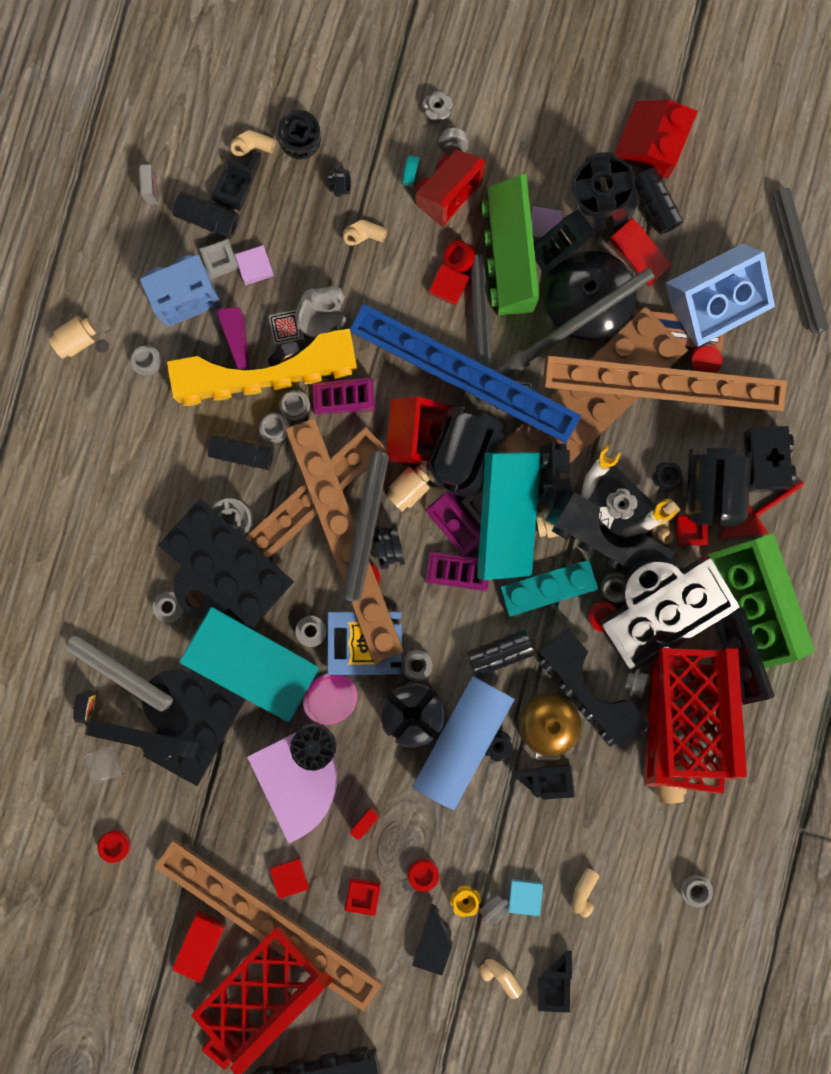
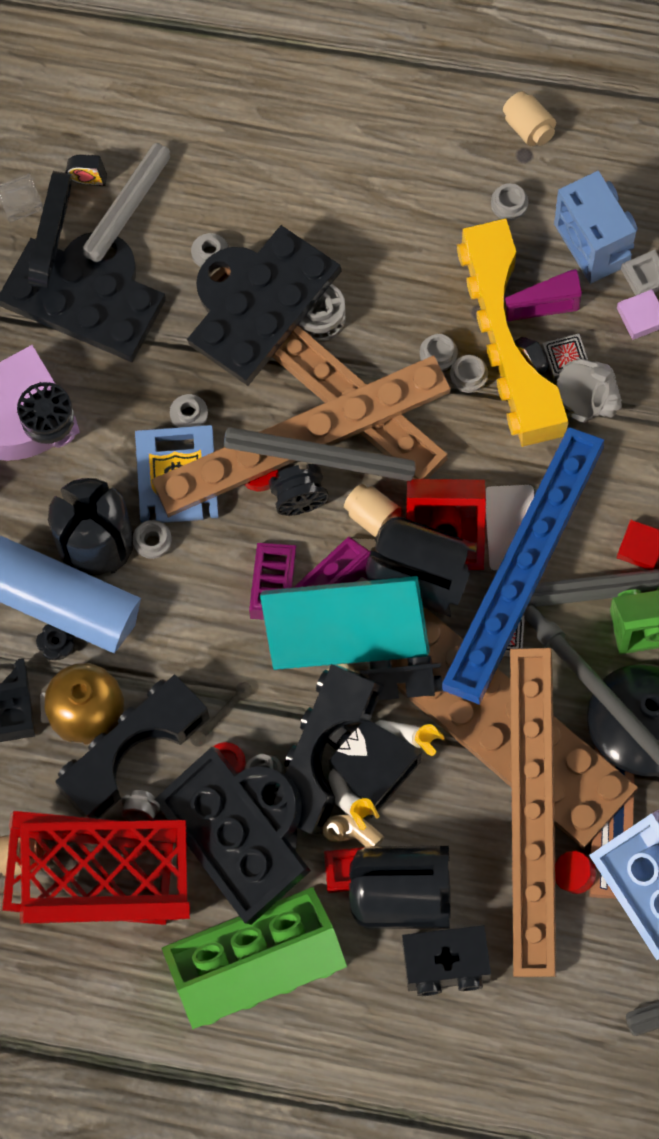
camera: 90 degrees right, 15 degrees down
(241, 450) = (406, 315): black axle -> none
(249, 664) = (143, 340): teal tile -> none
(330, 699) = (105, 438): dark pink piece -> none
(342, 385) = (487, 457): magenta slope -> none
(413, 381) = (504, 514): none -> white sticker
(500, 653) = (171, 635): black axle -> none
(548, 588) = (258, 692): teal plate -> none
(613, 504) = (375, 766): light grey plate -> none
(675, 476) = (414, 822): black plate -> none
(737, 634) = (181, 939): black tile -> none
(752, 524) = (364, 943): red piece -> none

